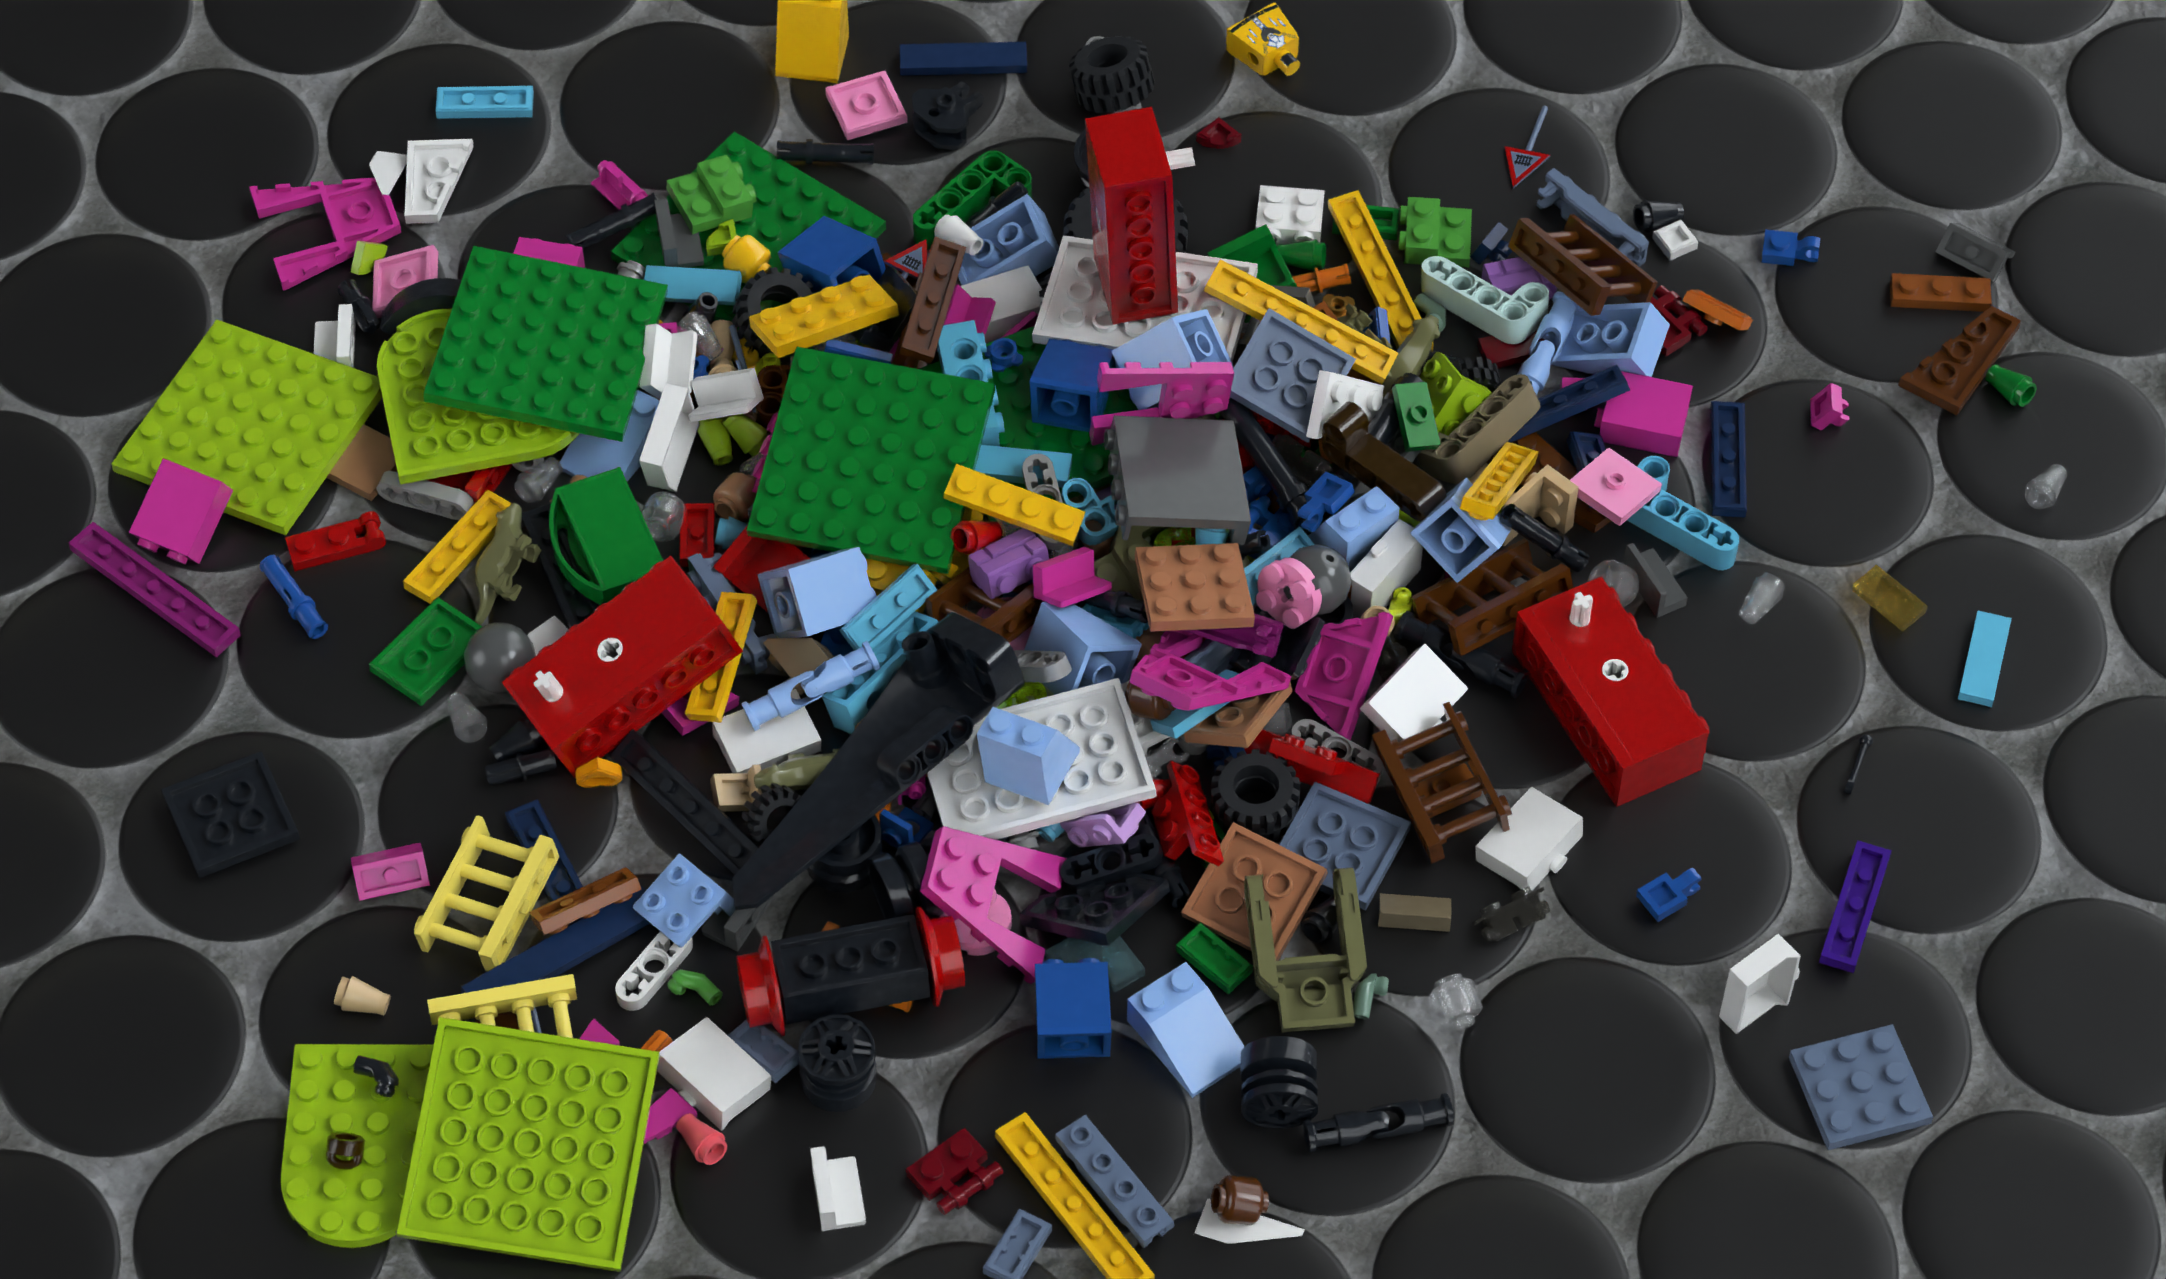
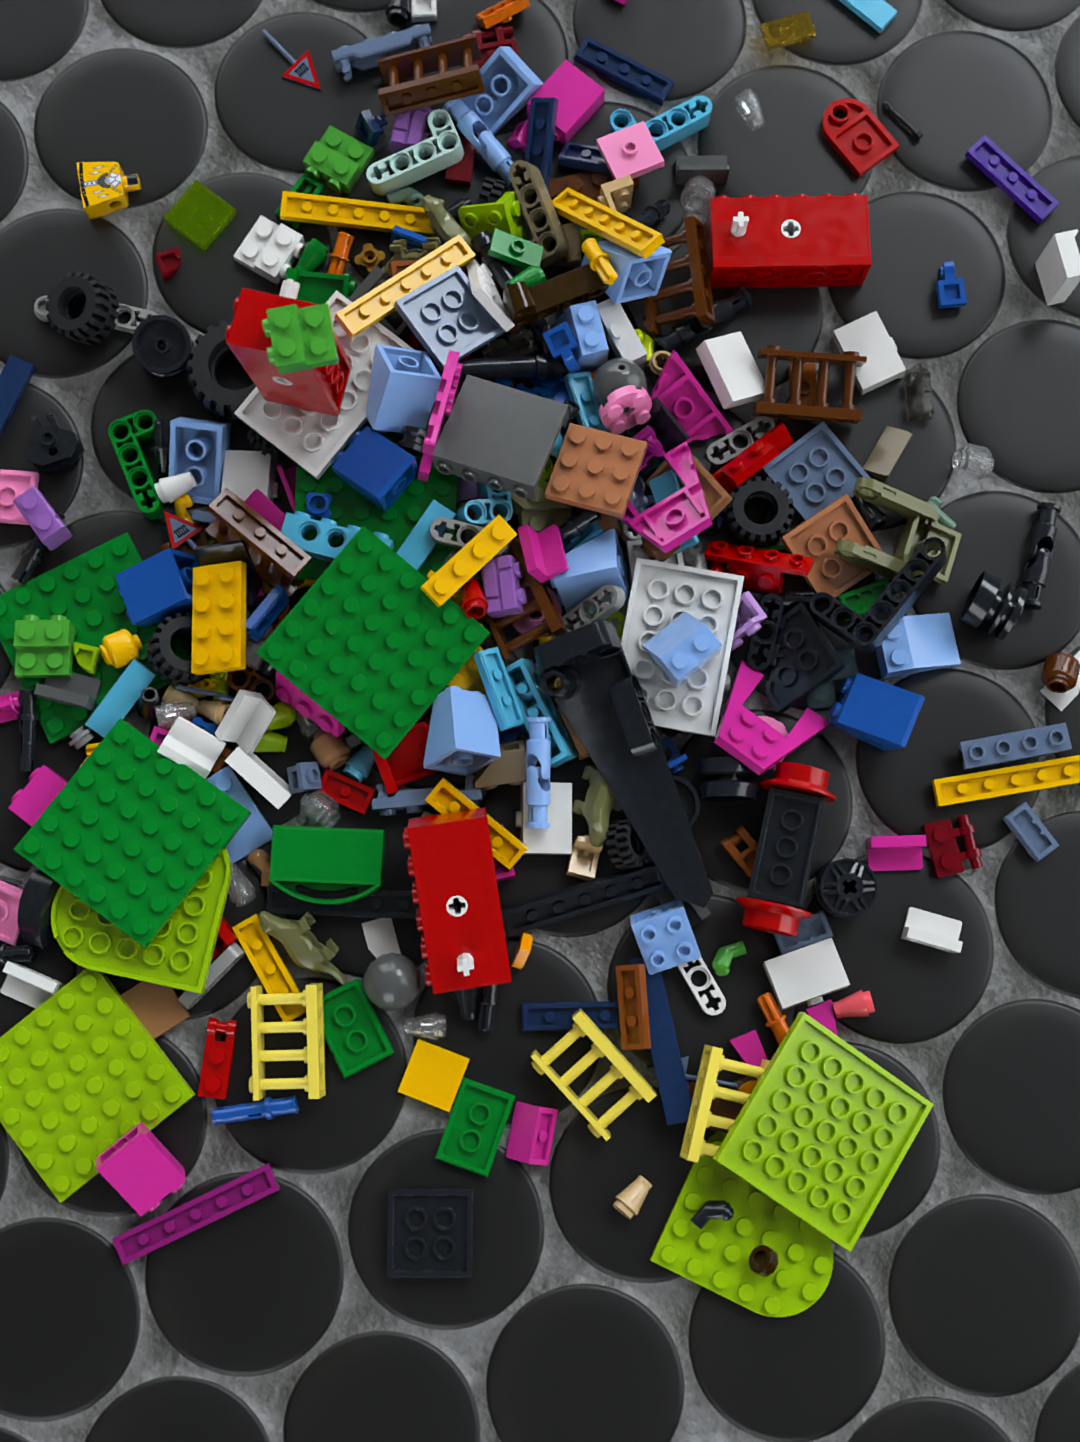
camera: 65 degrees left, 25 degrees up
(372, 814) = (475, 1127): none -> green tile
(397, 611) = (312, 1053): none -> light yellow fence
(412, 749) = (433, 1075): none -> yellow tile
(692, 483) = (304, 777): none -> sand blue bracket
(853, 133) = (42, 518): none -> medium lavender brick
(915, 1112) = (895, 852): none -> dark pink panel
(1121, 399) = (412, 440): none -> black wheel
(1122, 168) = (300, 337): none -> bright green plate
(1214, 956) = (885, 603): none -> black beam
(1291, 140) = (200, 215): none -> clear neon green tile
(1387, 435) = (531, 276): none -> green cone
(1441, 483) = (599, 261): none -> yellow axle
(1802, 727) = (858, 137): none -> red tile

